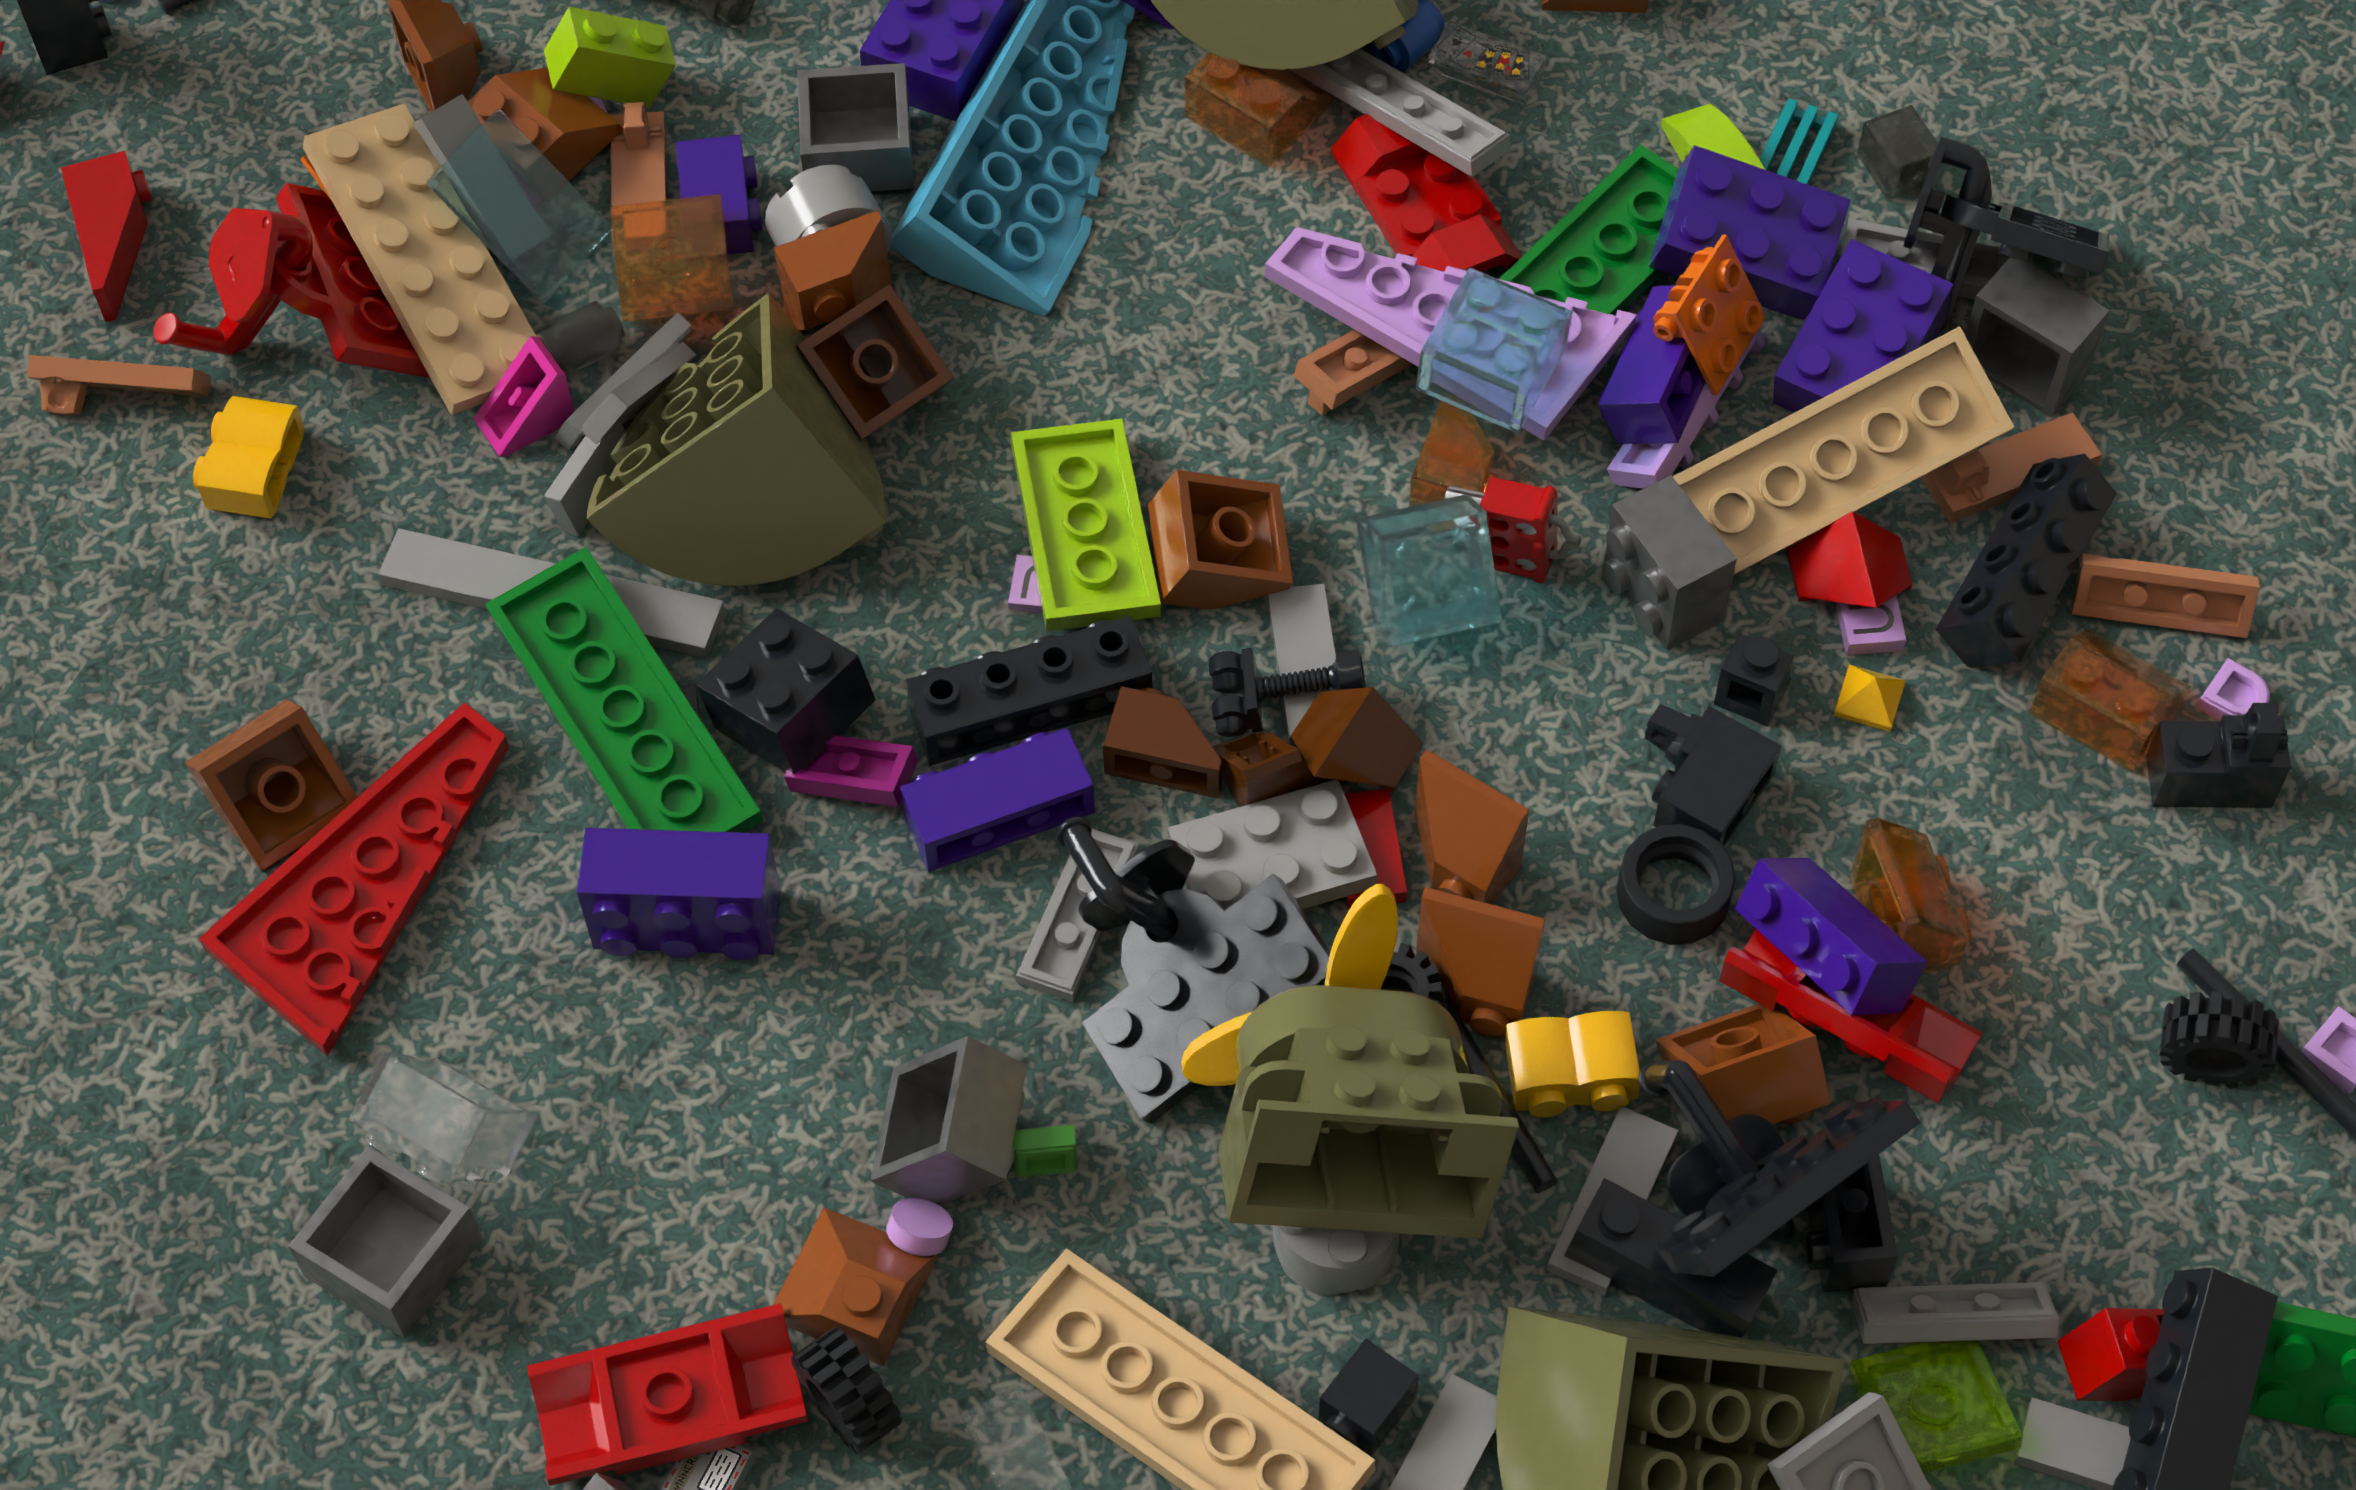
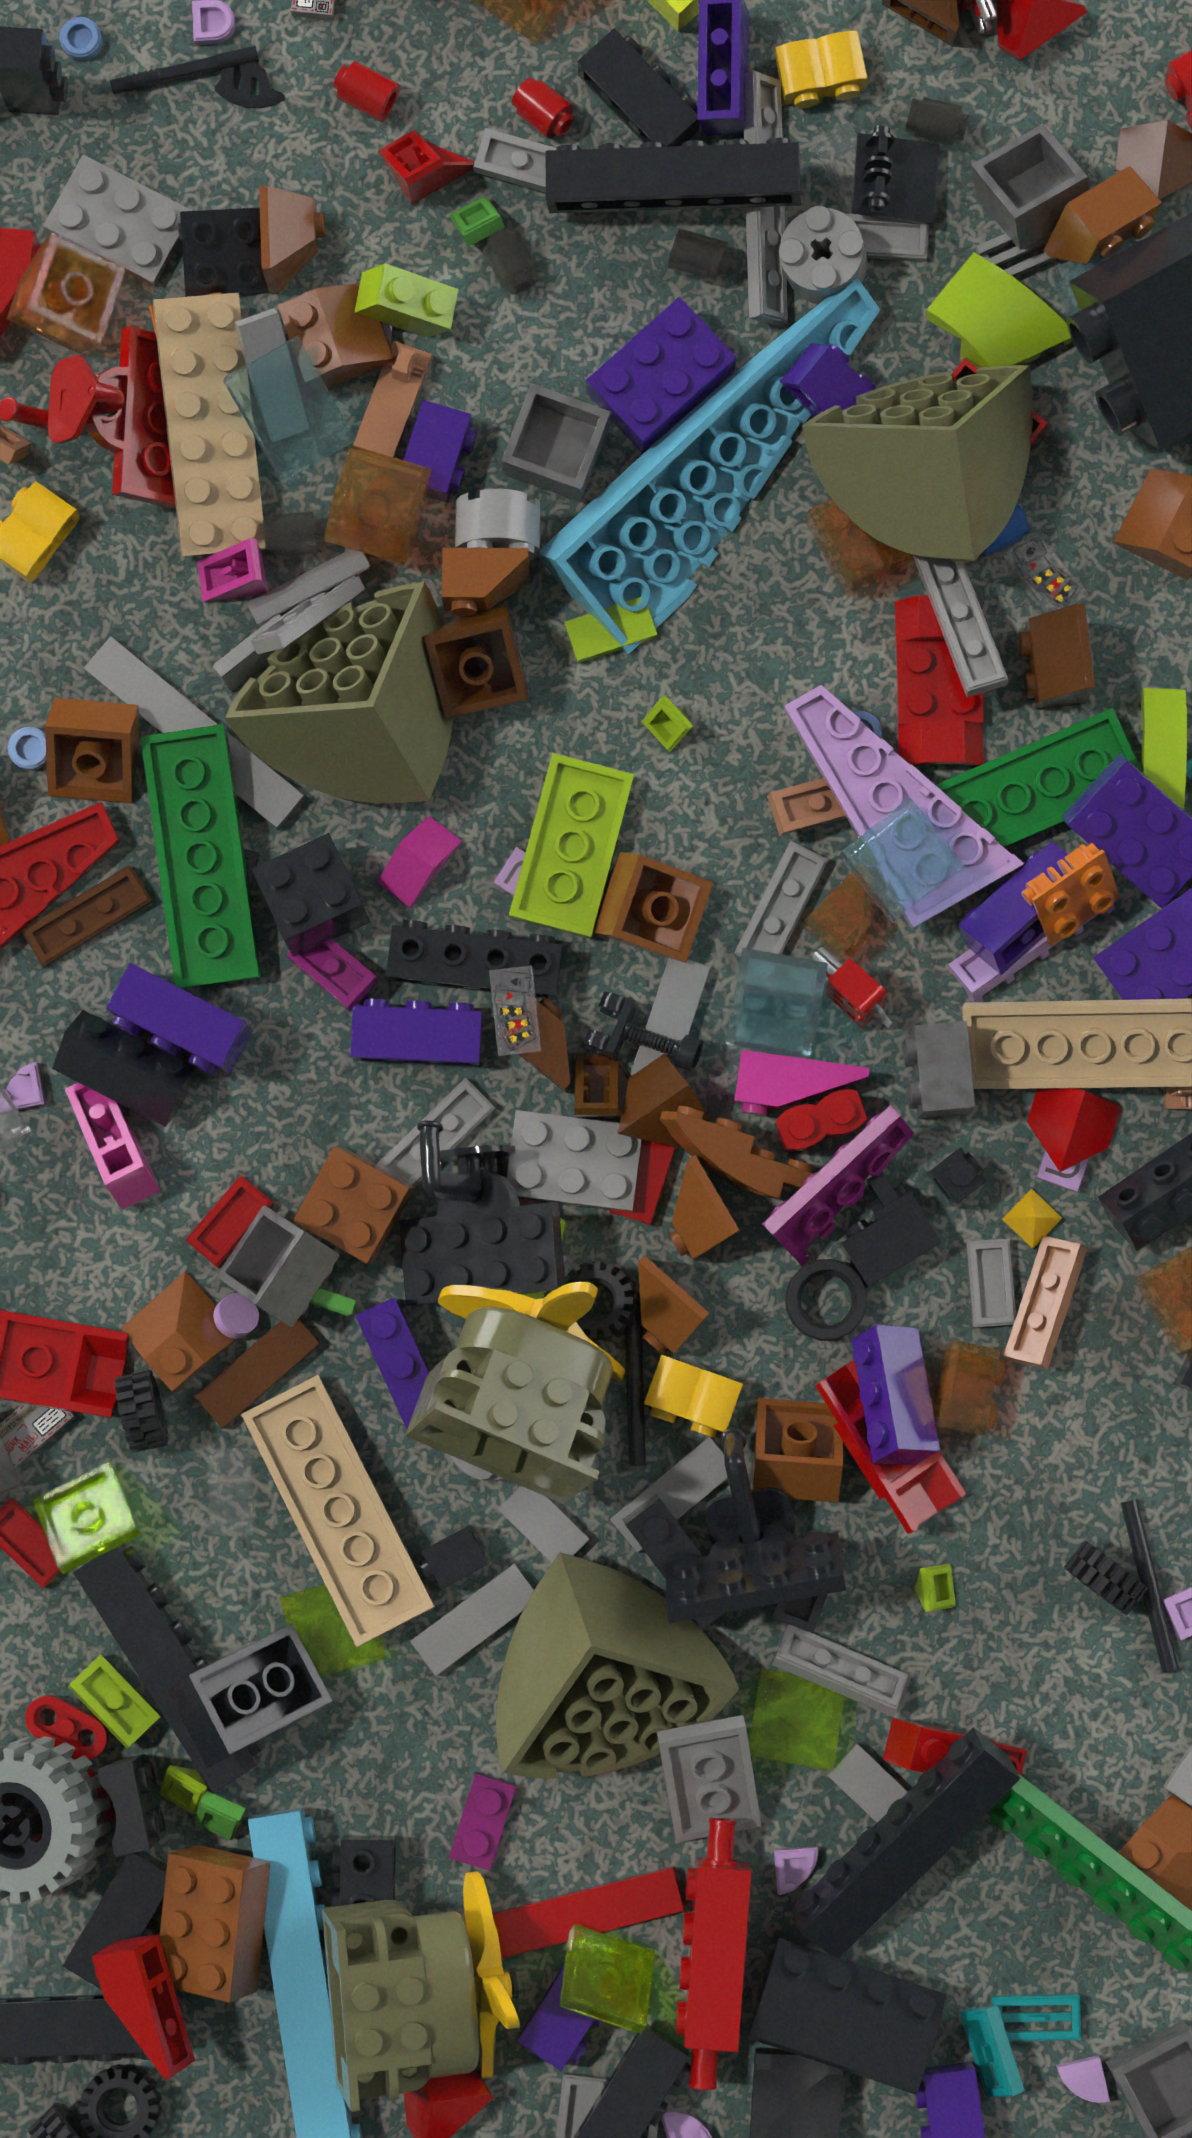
camera: 30 degrees right, 25 degrees up
(186, 189) = (67, 294): none -> clear orange slope
(225, 124) = (117, 219): none -> light grey plate
(345, 691) = (28, 748): none -> light blue tile
(361, 83) = (222, 251): none -> black hinge
(428, 655) = (92, 749): none -> dark orange slope
(501, 846) = (87, 916): none -> reddish brown tile
(509, 1073) = (26, 1087): none -> lavender tile
(629, 982) = (123, 1068): none -> black brick
(656, 1084) = (113, 1146): none -> dark pink slope
(851, 1124) = (227, 1221): none -> red tile
(901, 619) = (418, 860): none -> dark pink slope
(979, 1287) = (256, 1371): none -> reddish brown tile
(998, 315) = (592, 640): none -> lime tile
(1022, 1006) = (354, 1204): none -> dark orange brick
(1111, 702) = (515, 1010): none -> clear tile
(1133, 357) = (667, 723): none -> lime slope
(1168, 1185) = (395, 1354): none -> dark purple brick
(1371, 477) = (783, 901): none -> light grey tile
(1456, 1308) = (543, 1523): none -> light grey tile
(1484, 662) = (780, 1081): none -> dark pink slope
(1503, 758) = (730, 1153): none -> dark orange slope
(1553, 686) = (808, 1124): none -> red brick
(1554, 112) = (1058, 658): none -> reddish brown slope
(1617, 732) = (837, 1184): none -> magenta wing
(1862, 780) = (990, 1283): none -> light grey tile
(1946, 771) = (1045, 1302): none -> hinge
(2011, 1159) = (935, 1587): none -> lime slope

